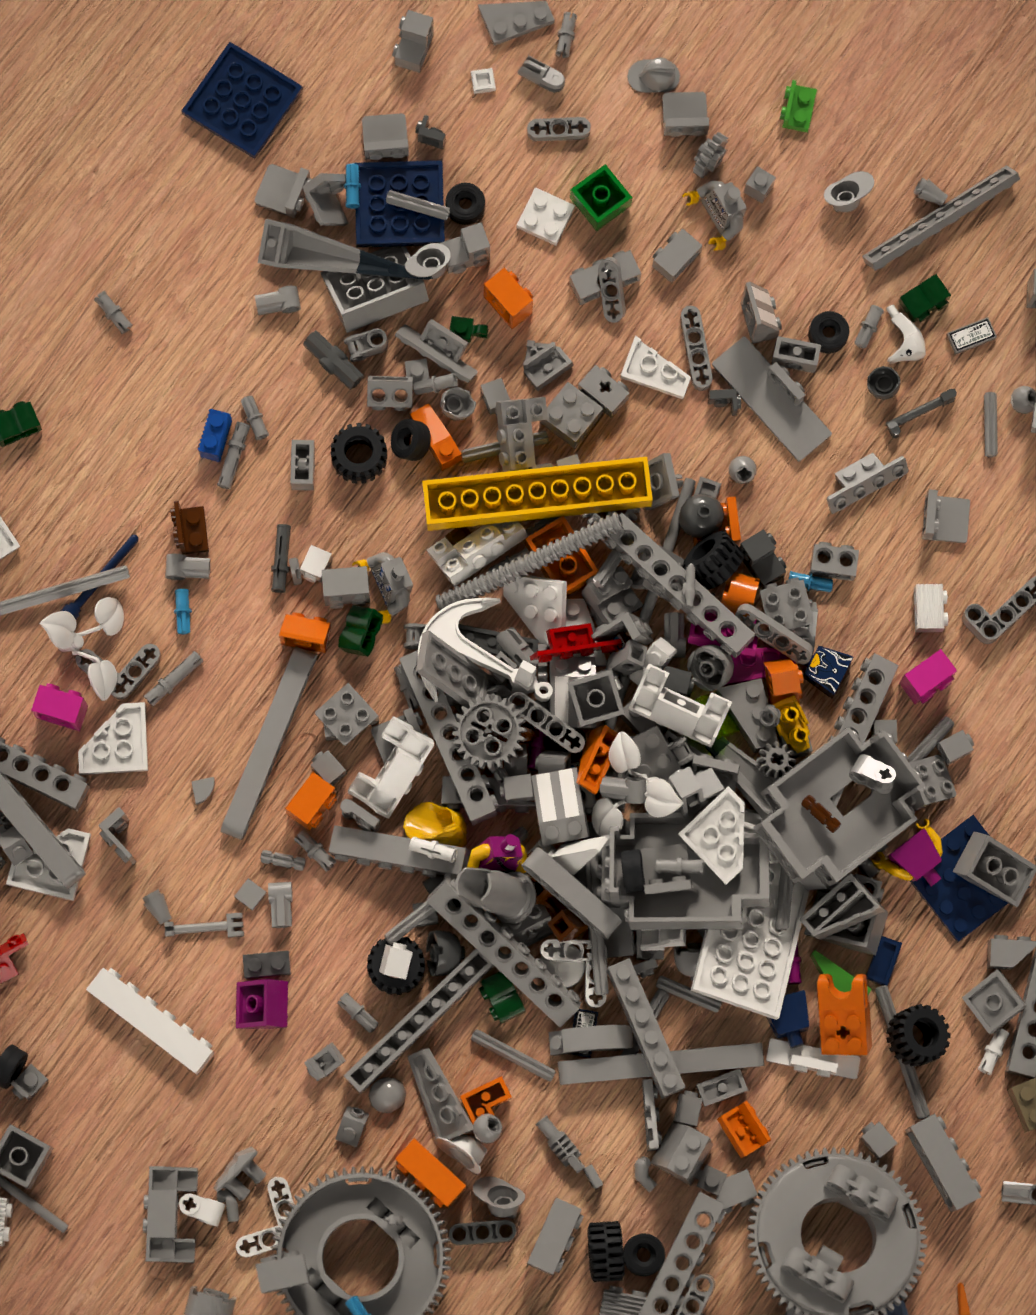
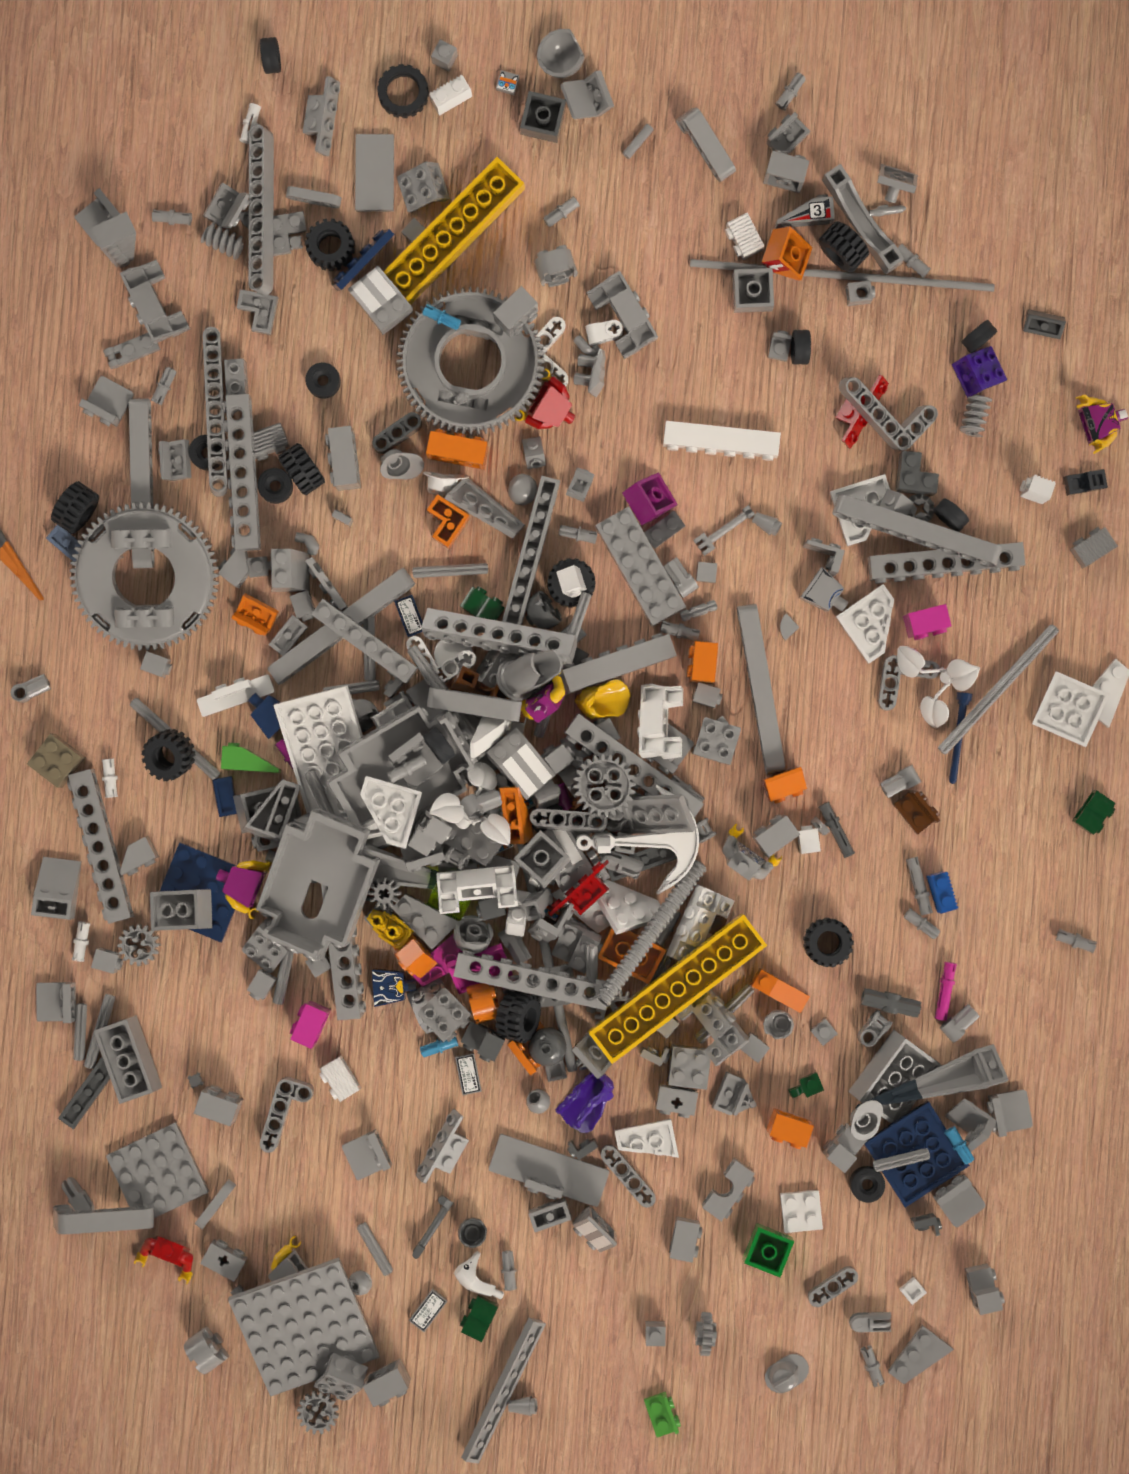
camera: 155 degrees right, 10 degrees up
(143, 801) = (824, 592): none -> light grey torso
(173, 678) = (859, 693): light grey pin -> none
(182, 611) = (883, 747): dark azure axle -> none
(242, 100) = (1084, 1164): dark blue plate -> none
(271, 340) = (947, 982): none -> dark pink pin
(302, 465) = (863, 908): light grey brick -> none
(304, 1162) = (549, 406): none -> torso
(315, 939) = (640, 566): none -> light grey brick
(360, 630) = (745, 809): dark green brick -> none
(364, 819) = (656, 672): light grey plate -> none
(390, 385) = (836, 1007): light grey brick -> none
(420, 440) = (788, 978): black tyre -> none
(433, 849) = (593, 676): white pin -> none
(435, 384) = (804, 1029): light grey axle -> none
(440, 346) = (816, 1060): light grey bracket -> none
(487, 1128) = (434, 502): light grey piece -> none
(561, 1145) = (378, 527): light grey hinge -> none
(591, 1039) = (400, 612): light grey arch -> none
(601, 449) = (652, 1055): none -> light grey bracket
(603, 275) = (717, 1190): light grey beam -> none
(685, 114) = (744, 1356): light grey bracket -> none
(689, 586) = (522, 982): light grey piece -> none
(694, 438) = (586, 1102): none -> dark purple hair
(723, 206) = (670, 1298): light grey torso -> none
(765, 718) = (411, 920): light grey plate -> none
(777, 630) = (414, 988): light grey beam -> none
(797, 538) = (468, 1074): none -> tile
(821, 813) = (326, 869): reddish brown axle -> none
(832, 320) = (532, 1258): black tyre -> none
(834, 568) = (427, 1066): light grey brick -> none
(847, 192) = (584, 1369): light grey piece -> none
(847, 1010) = (227, 734): orange brick -> none
(871, 774) = (308, 922): light grey piece -> none
(943, 1162) = (98, 673): light grey brick -> none
(994, 1001) = (128, 812): light grey plate -> none

